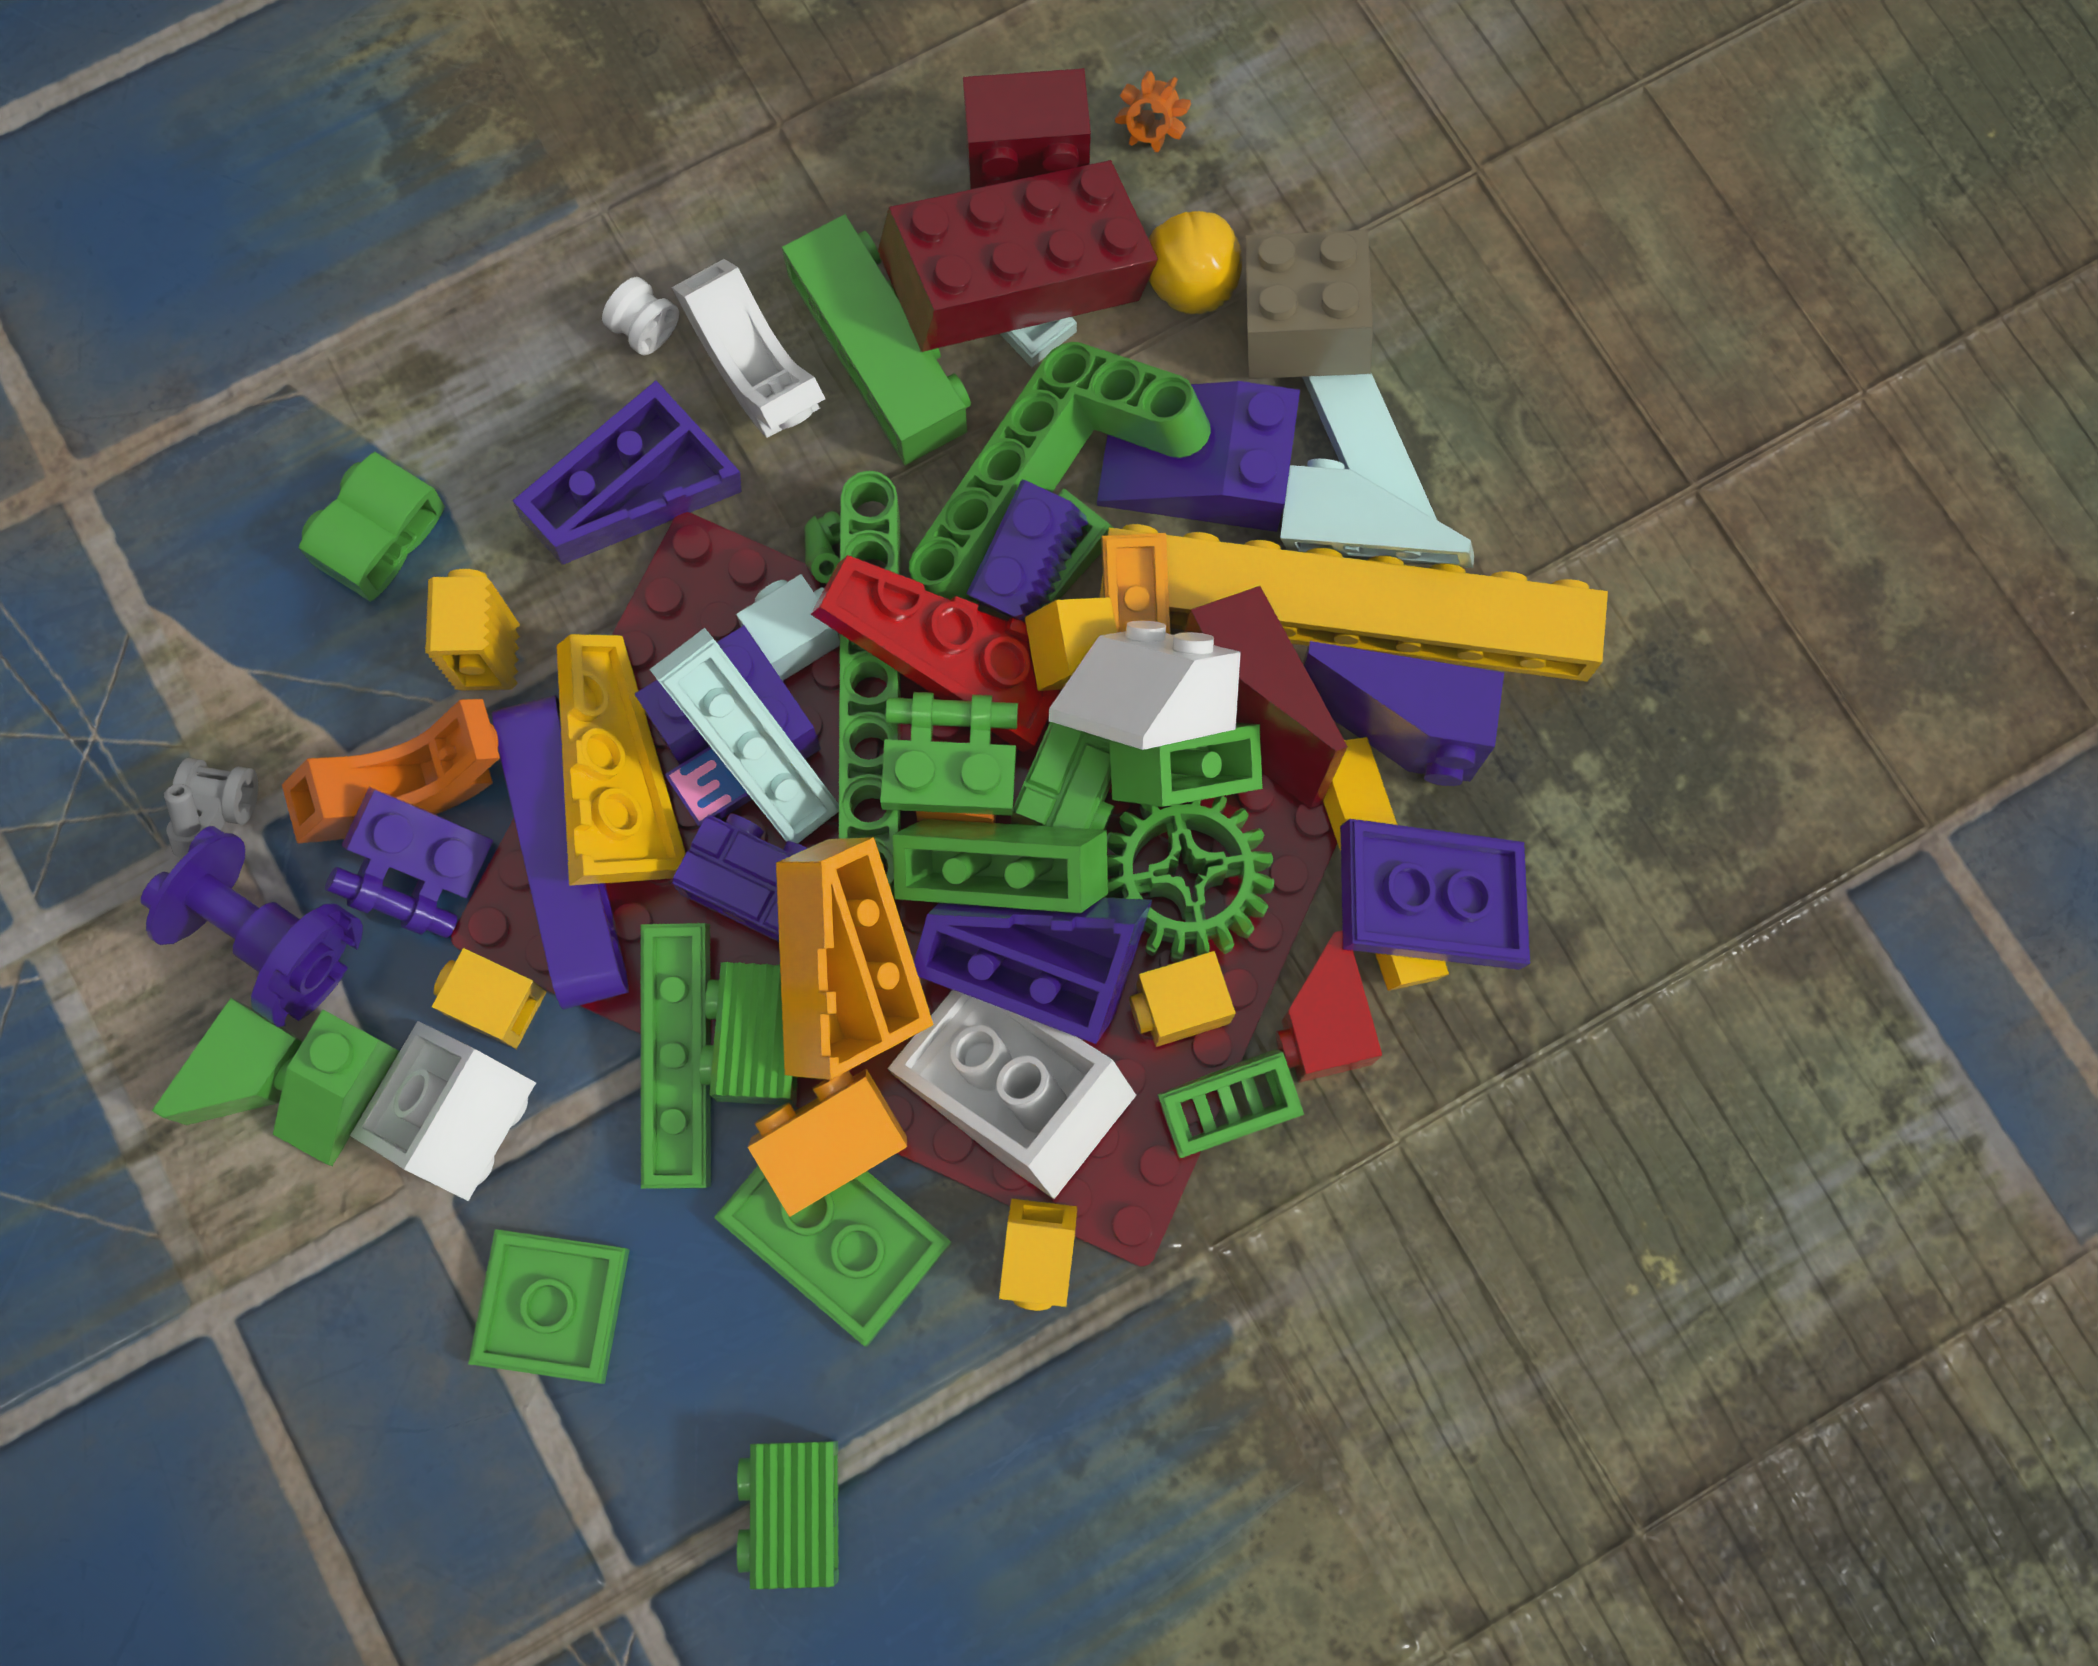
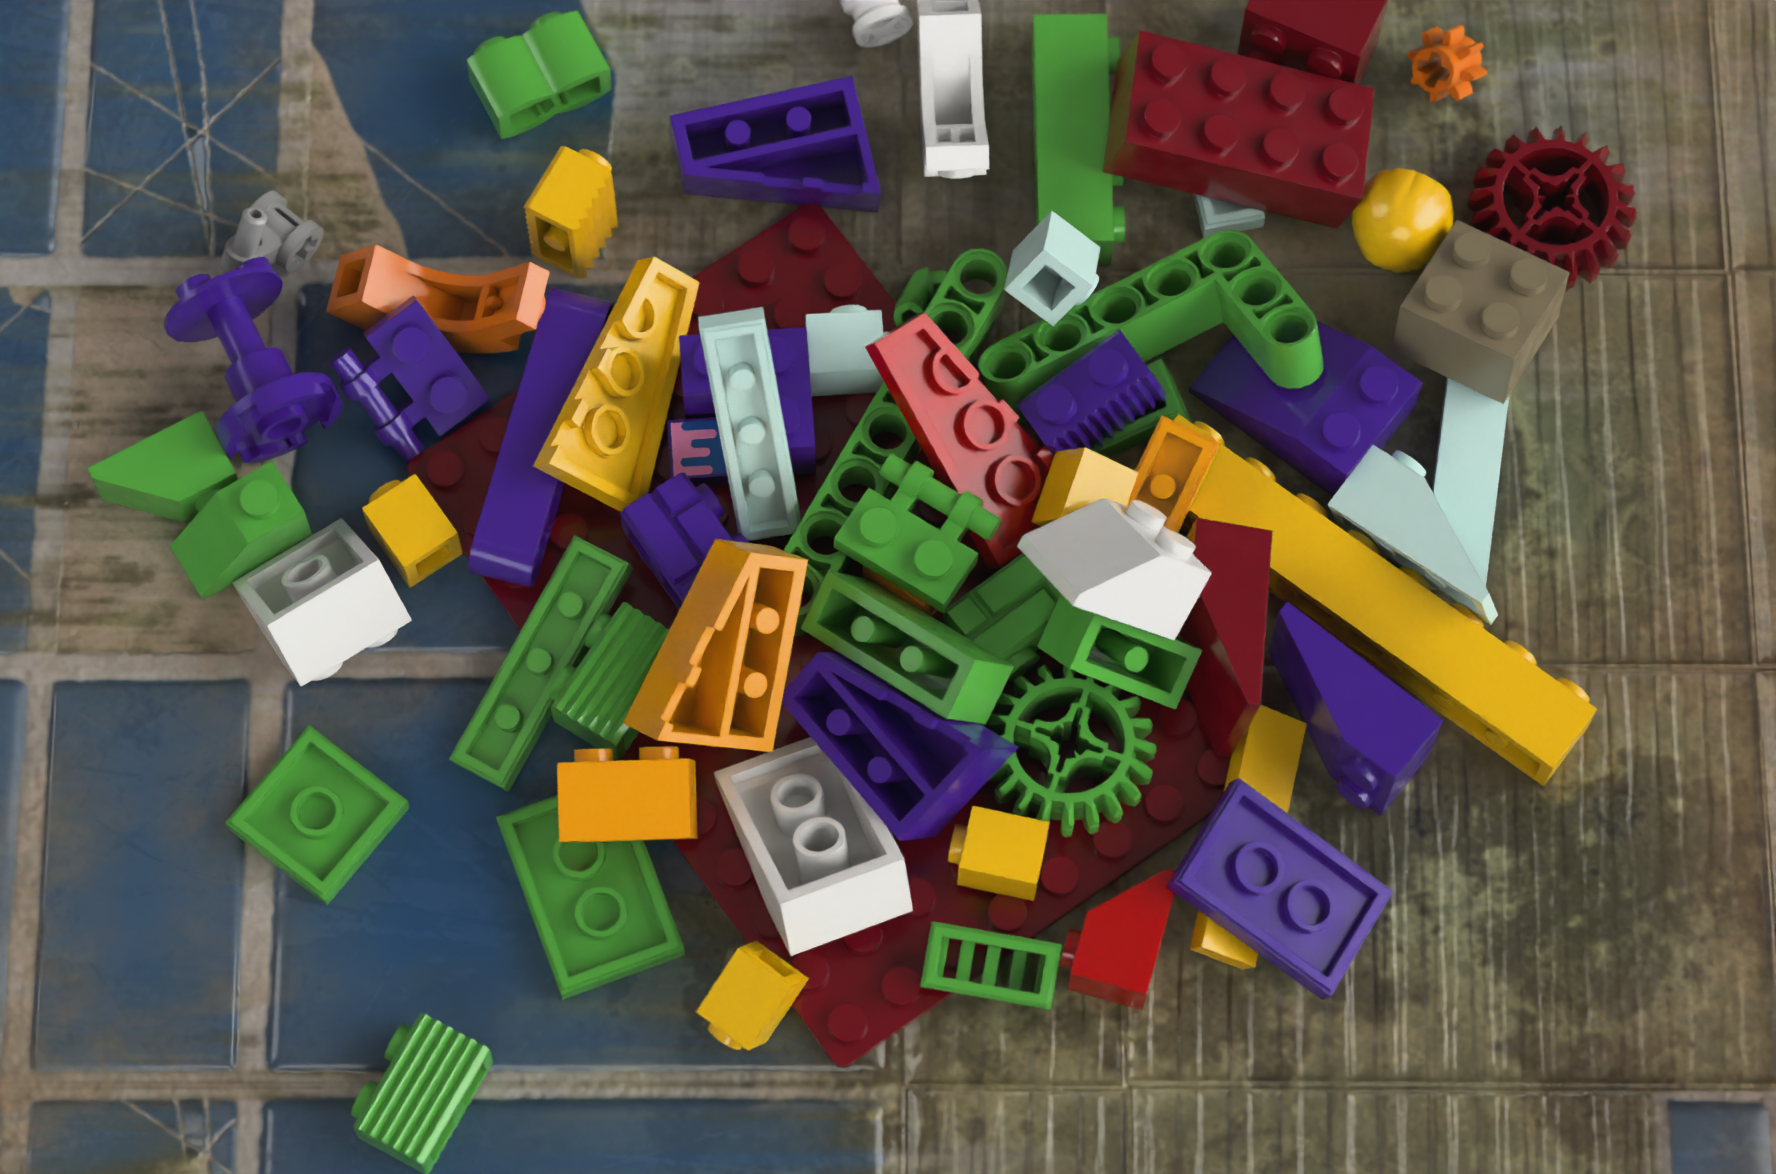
camera: 30 degrees right, 5 degrees down
(930, 457) = (1053, 269): none -> light aqua brick
(1277, 170) = (1521, 174): none -> dark red gear

